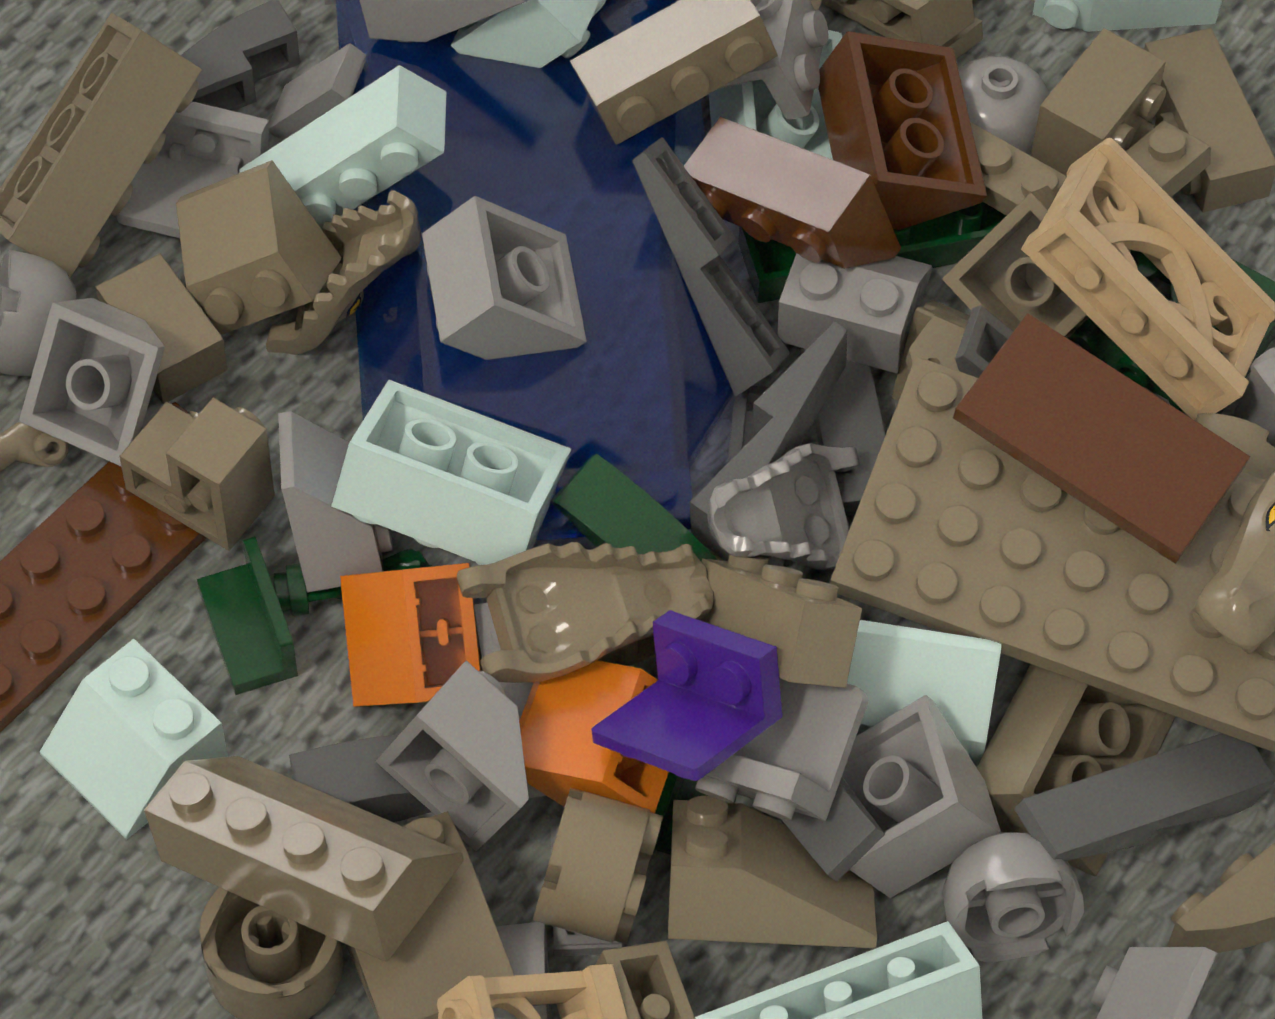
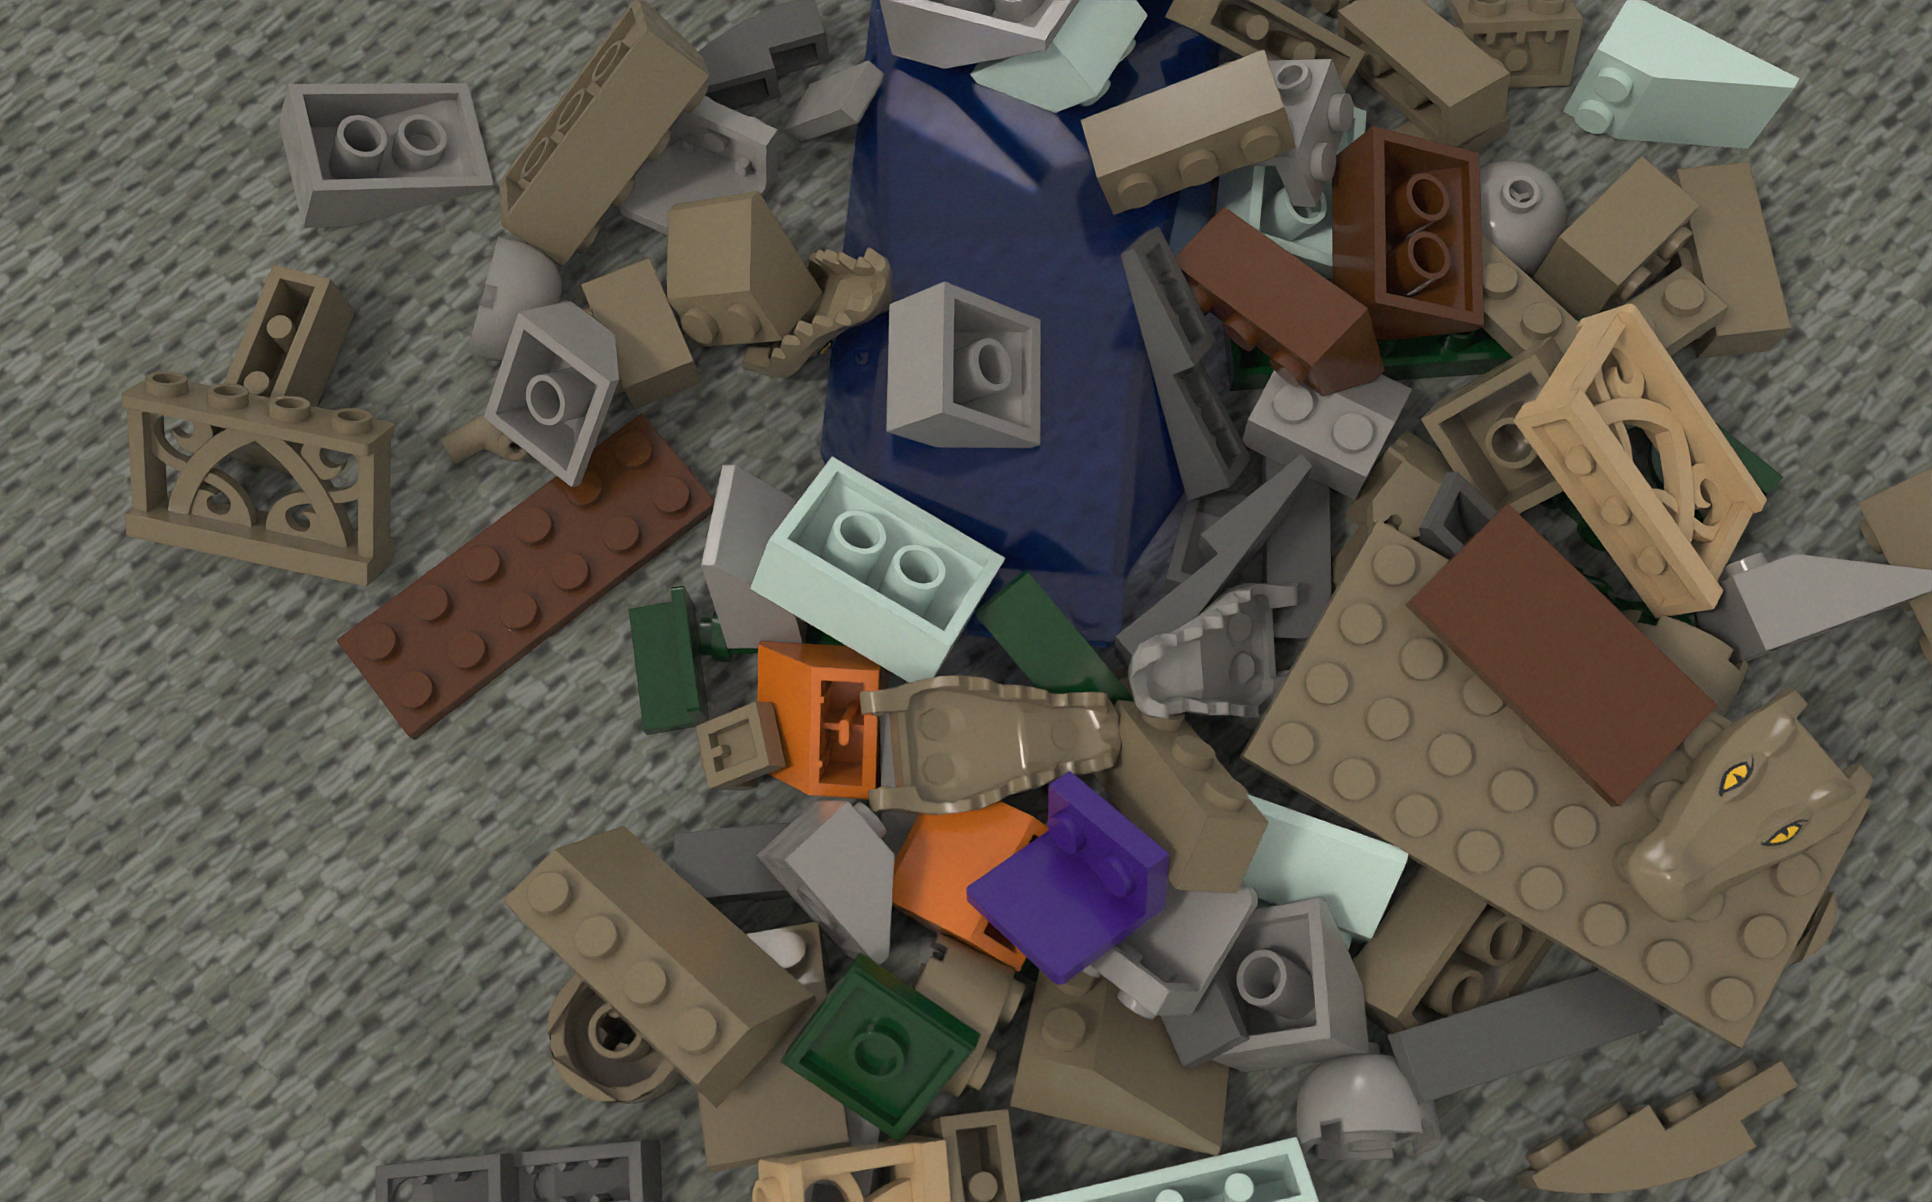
camera: 15 degrees right, 15 degrees up
(130, 735) = (535, 776): light aqua slope -> none
(203, 468) = (643, 505): dark tan brick -> none
(338, 675) = (740, 747): none -> dark tan bracket
(362, 144) = (852, 182): light aqua brick -> none
(535, 881) = (880, 1047): none -> dark green tile

